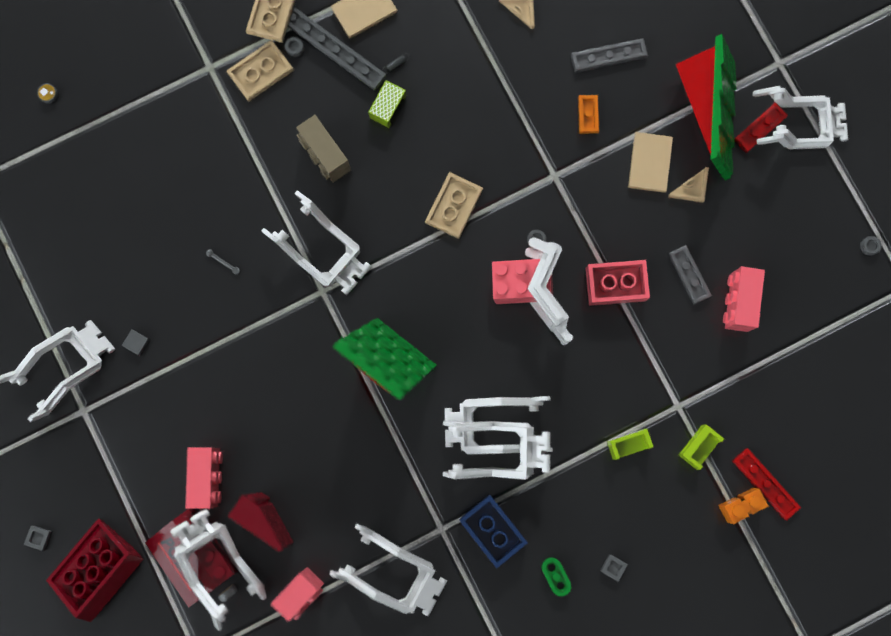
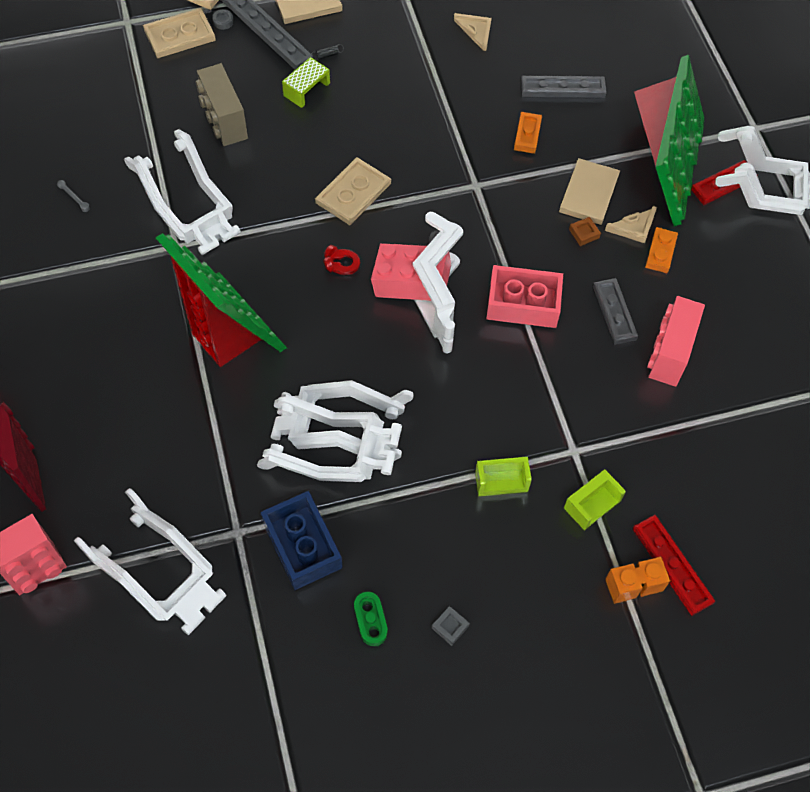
camera: 10 degrees right, 20 degrees down
(454, 271) = (333, 253): none -> red piece
(652, 203) = (584, 231): none -> dark orange tile
(718, 207) = (661, 250): none -> orange plate

